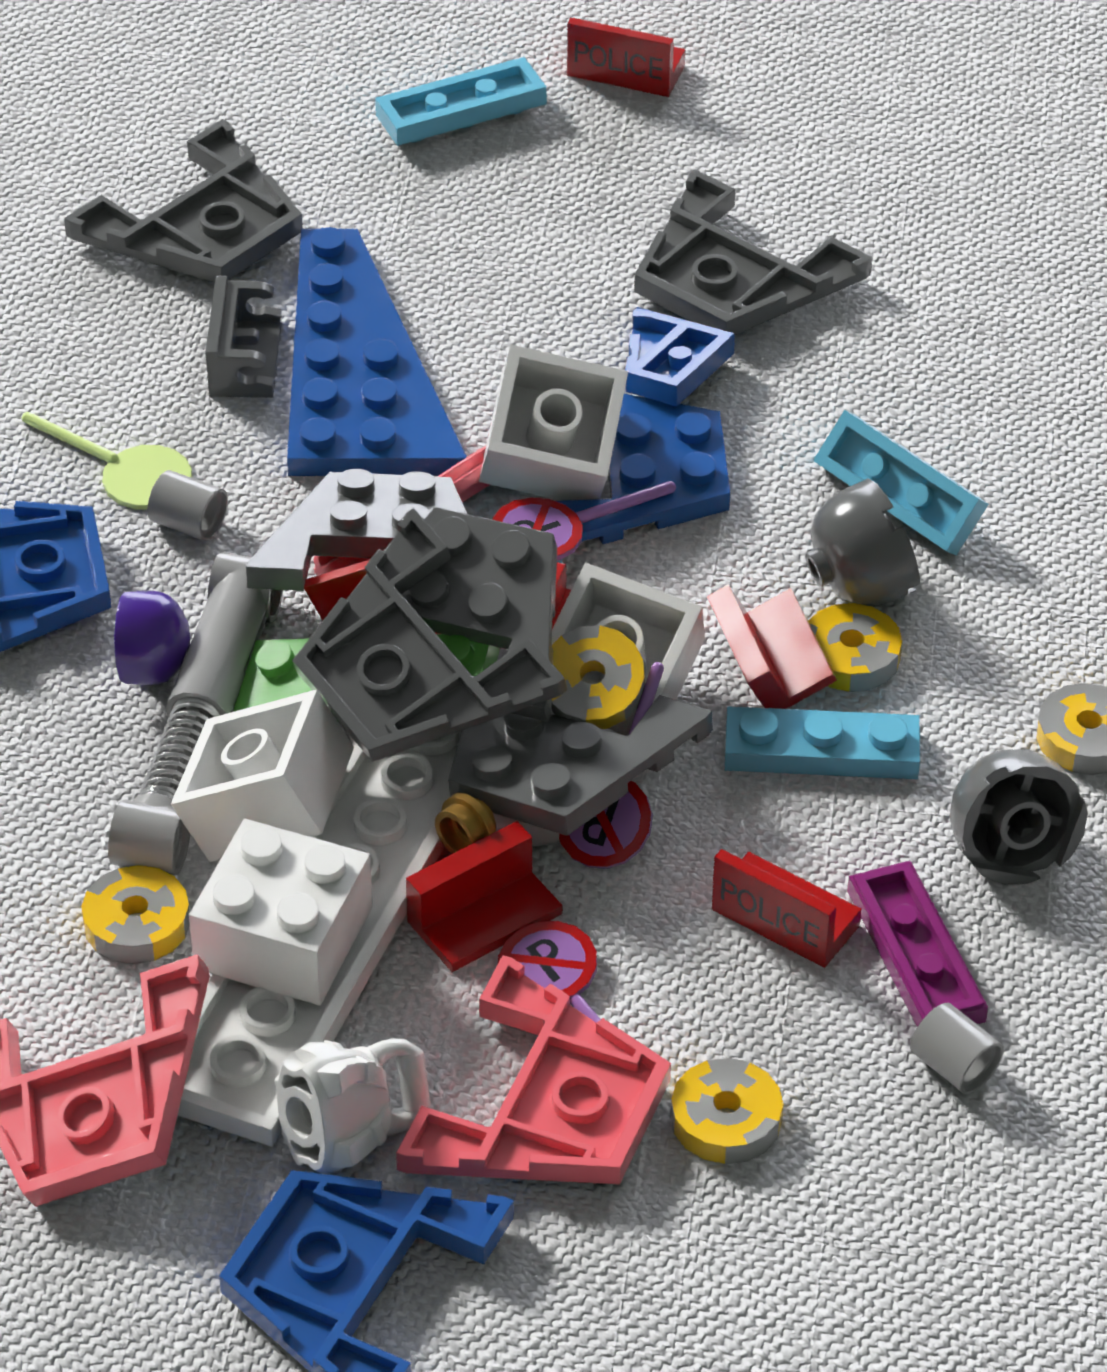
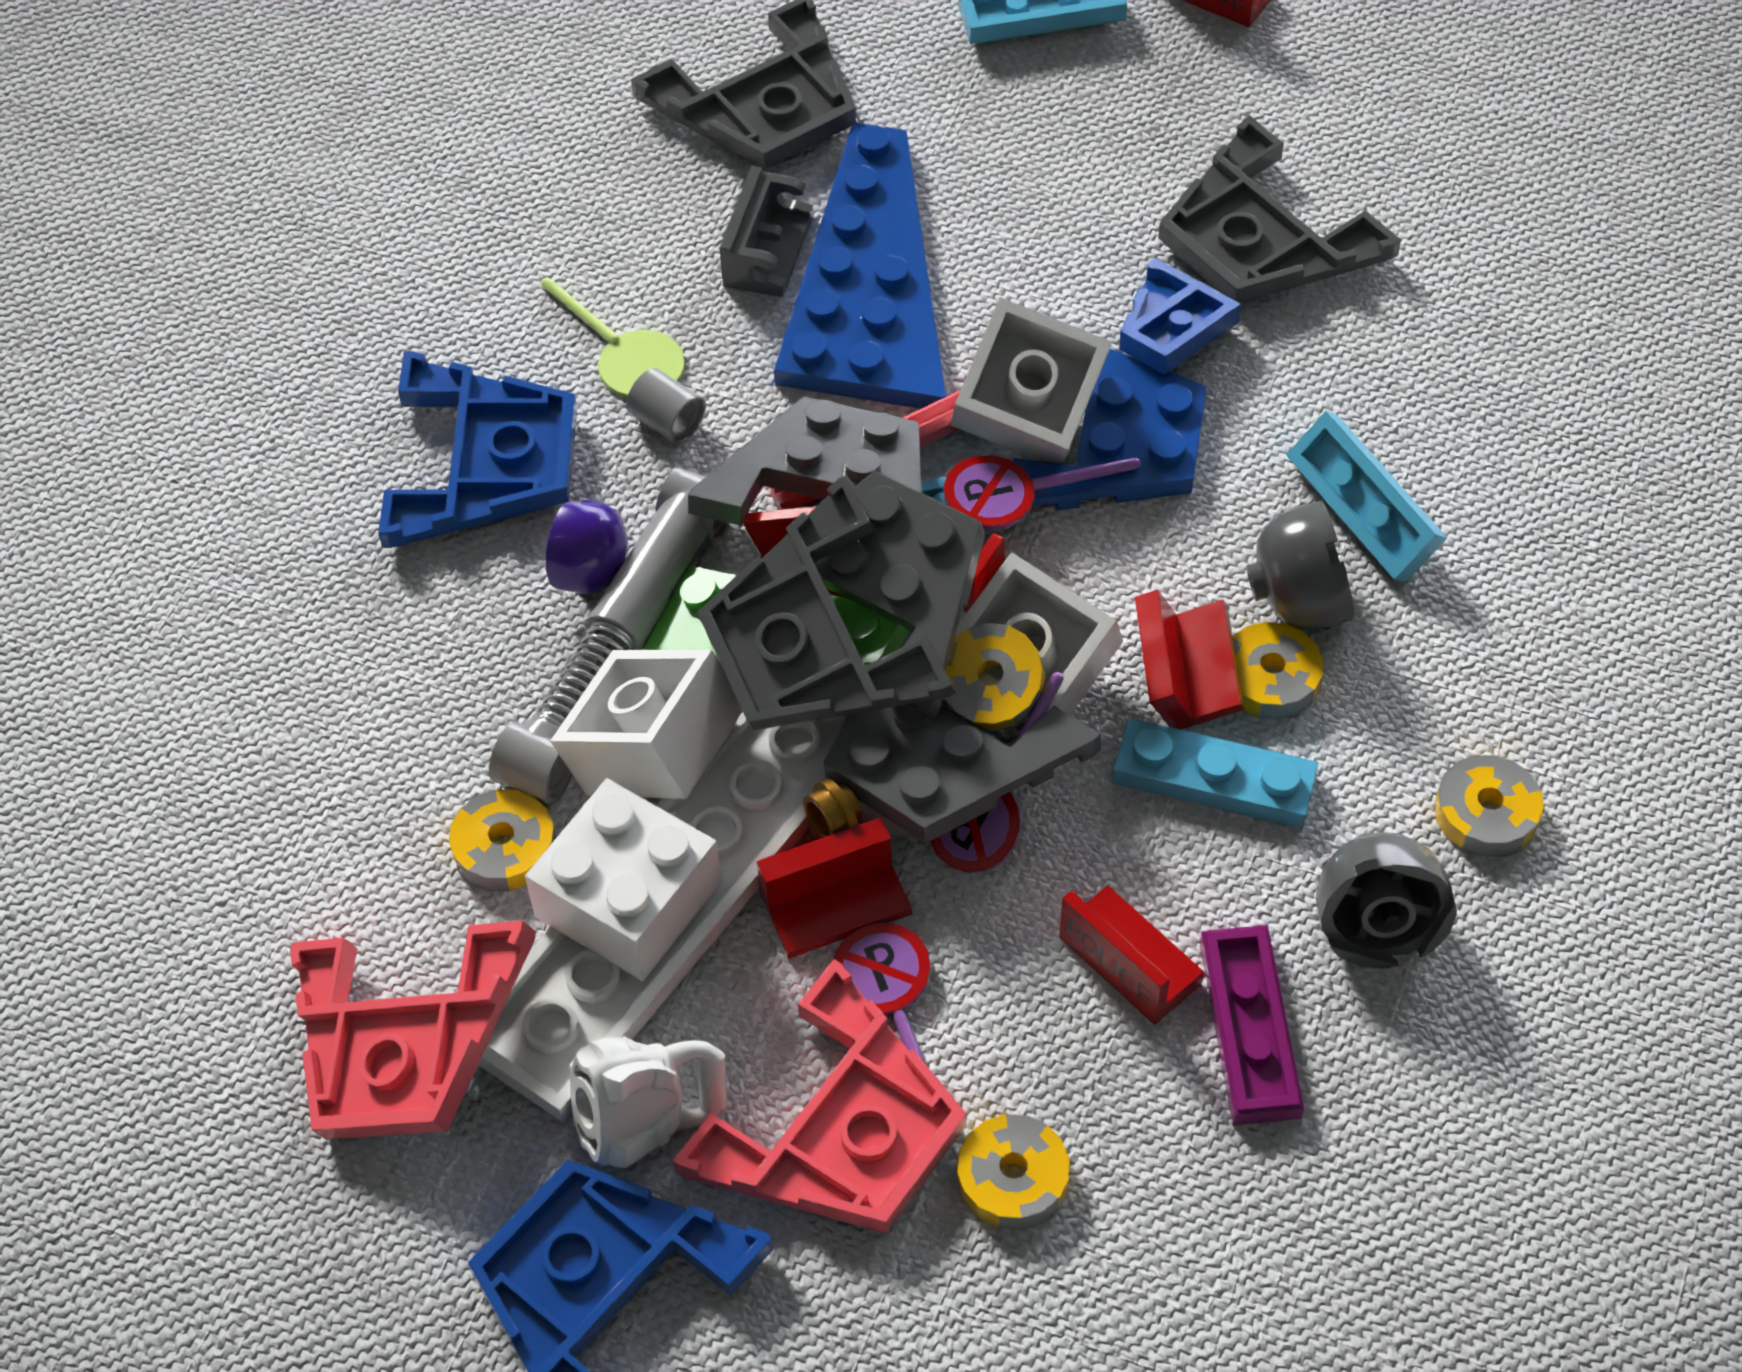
camera: 15 degrees right, 10 degrees up
(956, 1048) = (1259, 1151): light grey beam -> none

